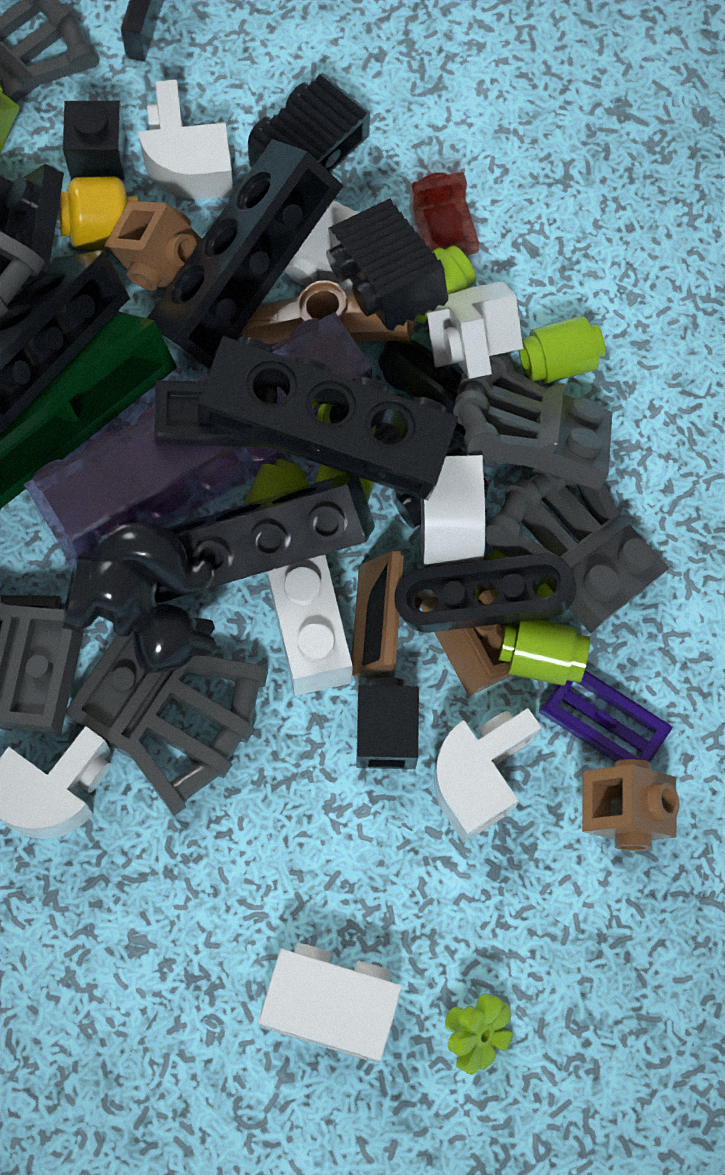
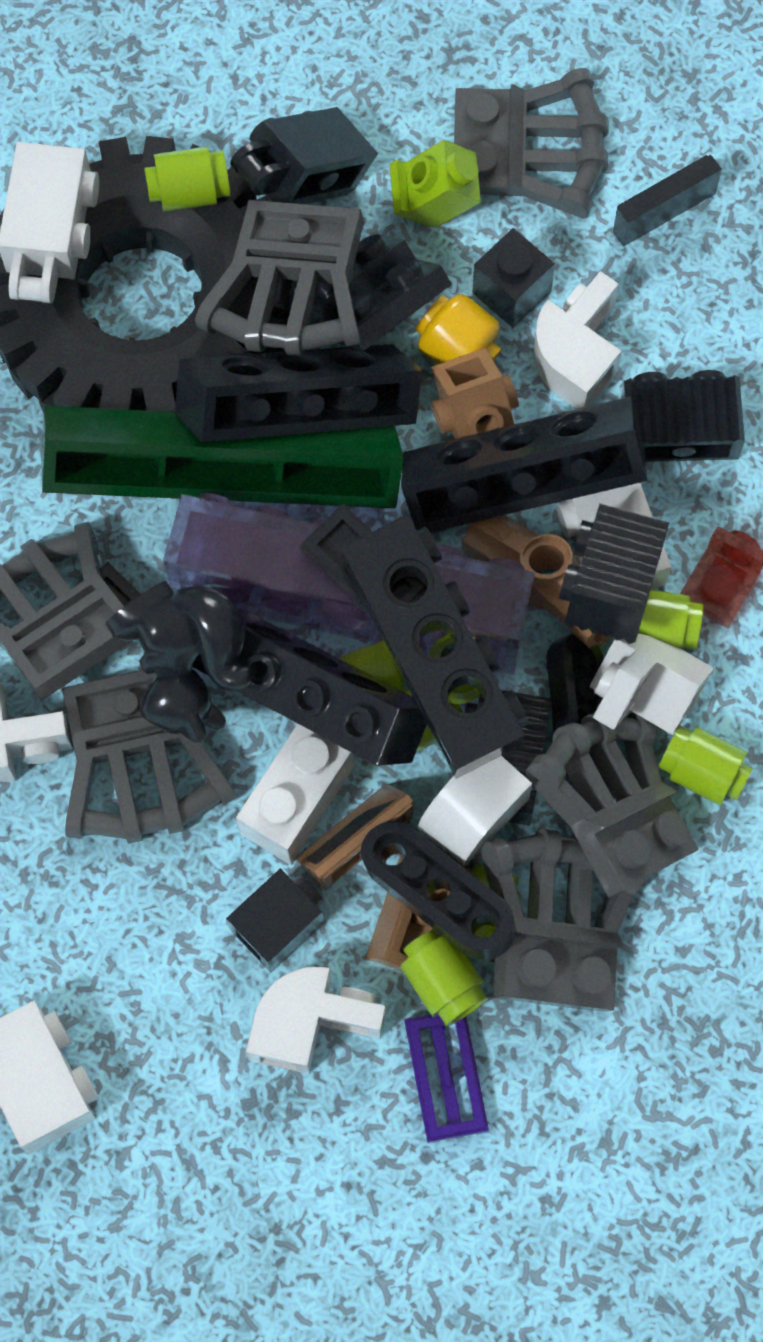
camera: 50 degrees right, 0 degrees up
(478, 1032) = (114, 1203): lime plant -> none
(630, 804) = (389, 1151): medium nougat brick -> none

